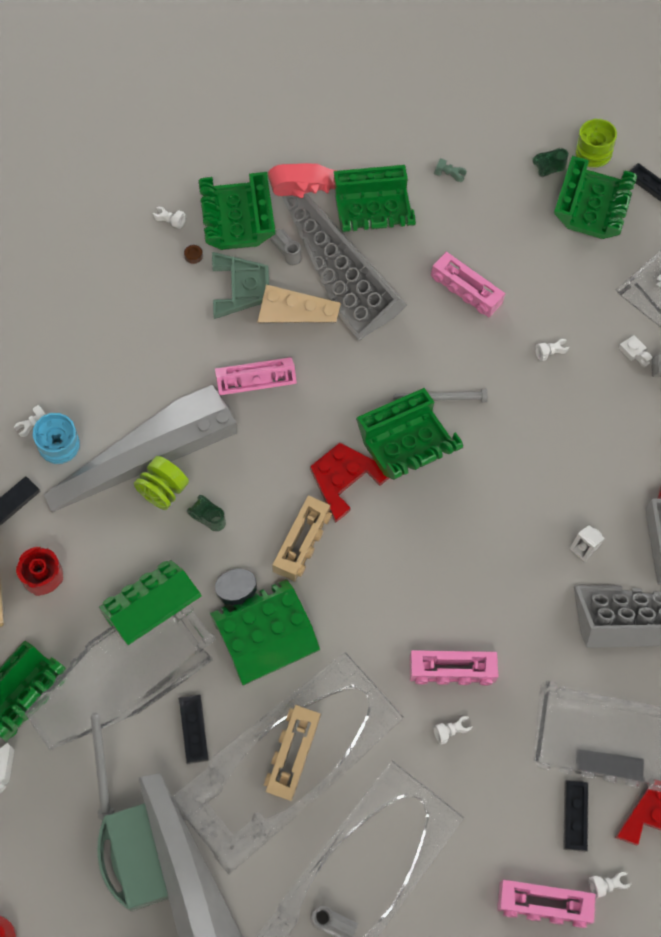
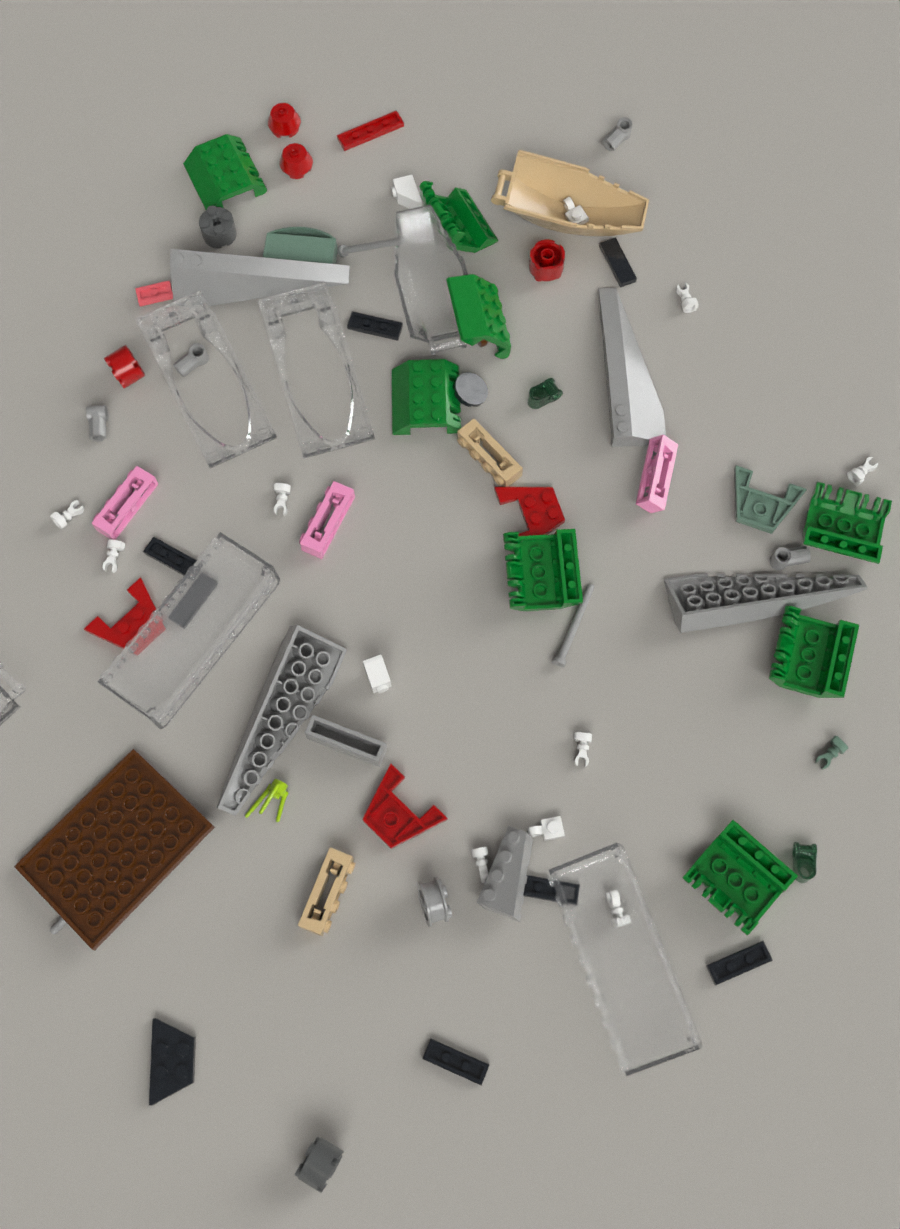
camera: 120 degrees right, 5 degrees up
(52, 429) = (658, 303): medium azure wheel -> none
(161, 482) = (583, 363): lime wheel -> none
(193, 254) = (813, 475): reddish brown tile -> none
(279, 759) = (339, 387): tan brick -> none
(295, 307) = (714, 533): tan wedge -> none
(300, 179) = (856, 593): coral animal -> none
(467, 284) = (711, 687): bright pink brick -> none
(596, 142) = (818, 911): lime wheel -> none

